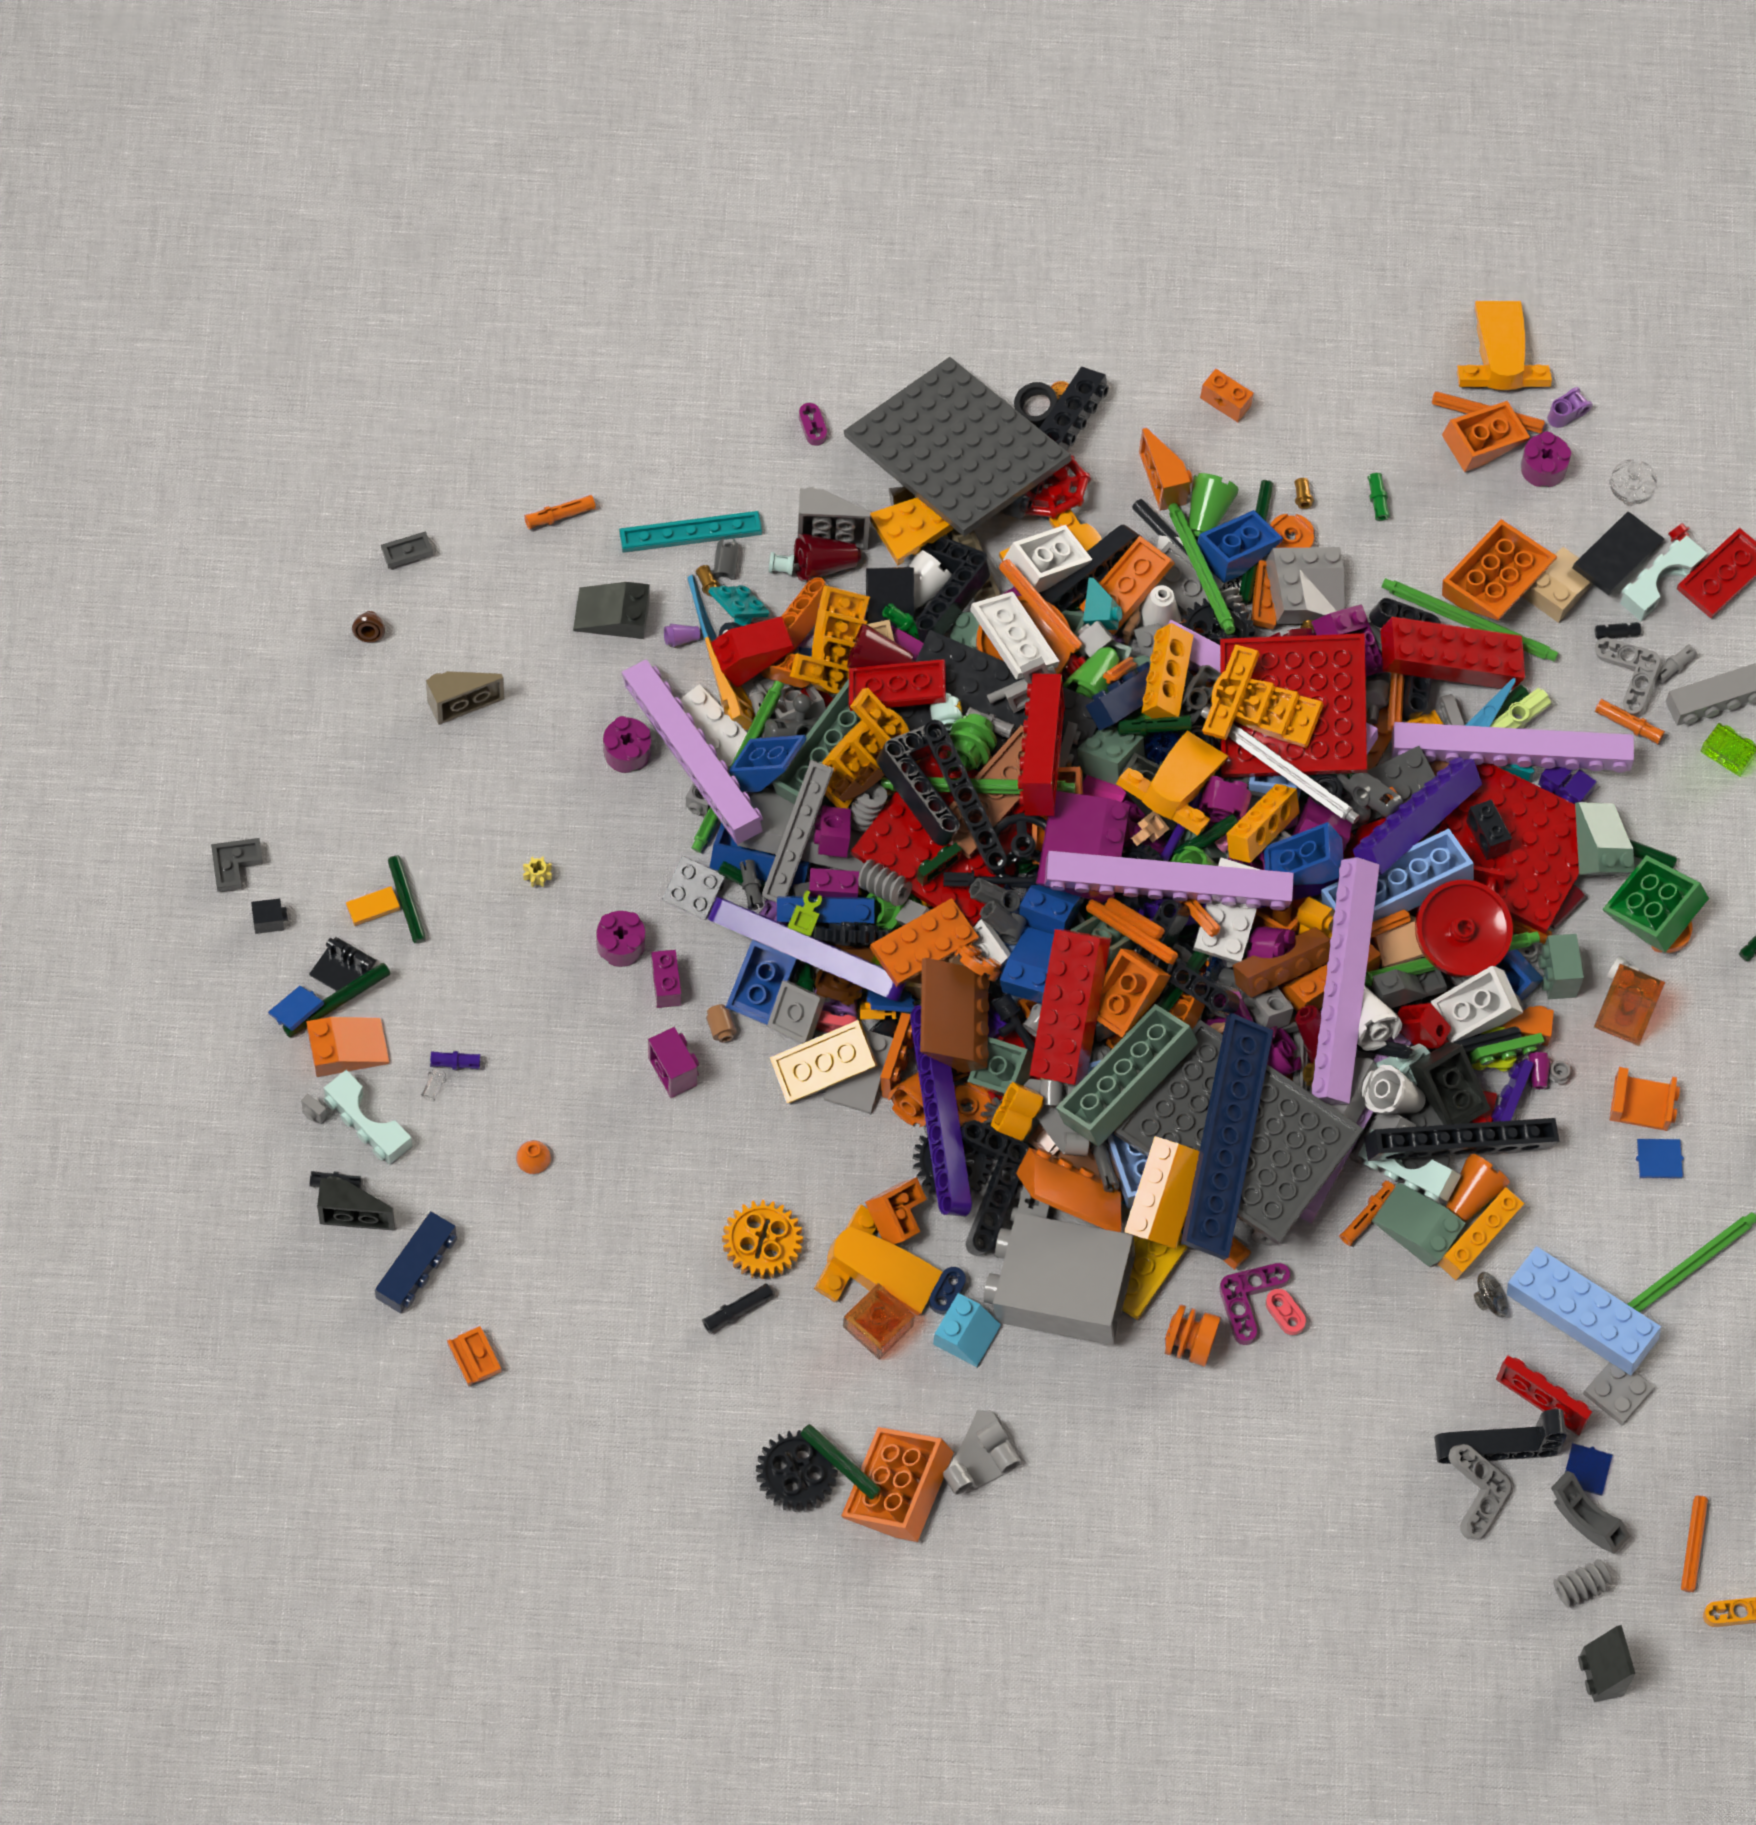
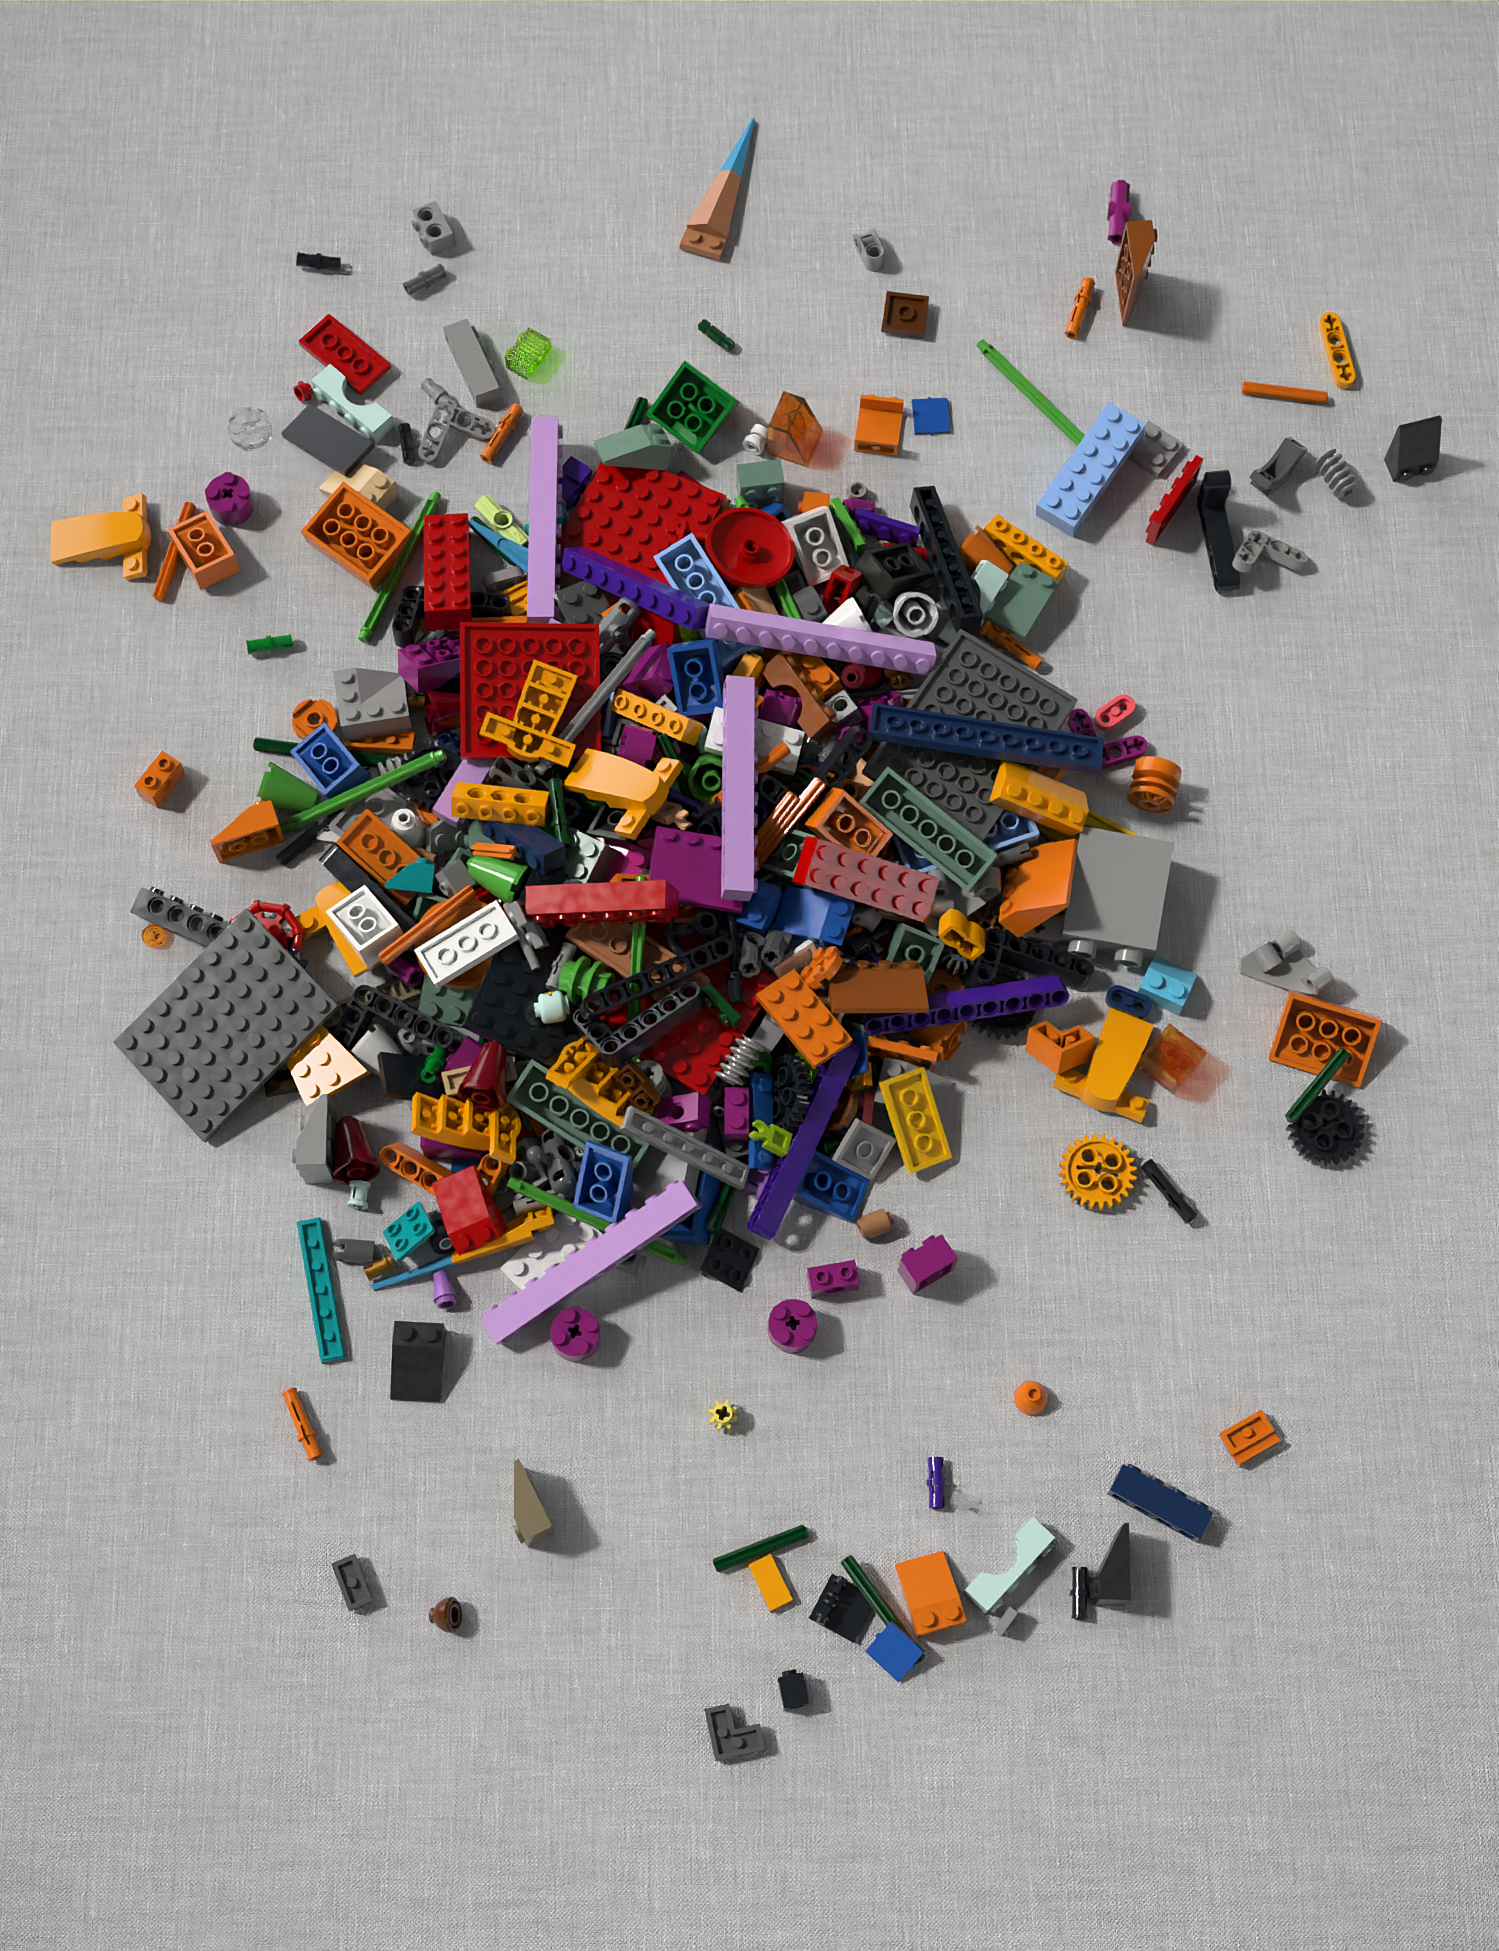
camera: 90 degrees left, 5 degrees up
(751, 884) = (733, 1197): dark grey pin -> none
(808, 425) = (193, 1179): magenta beam -> none
(901, 683) = (527, 1052): red tile -> none
(1030, 390) = (160, 941): black tyre -> none
(1304, 498) = (267, 710): pearl gold pin -> none
(1488, 1296) = (1082, 545): clear smoke piece -> none
(1489, 829) = (633, 538): black brick -> none
(1571, 405) = (169, 479): medium lavender piece -> none
(1589, 1467) = (1237, 468): clear blue piece -> none

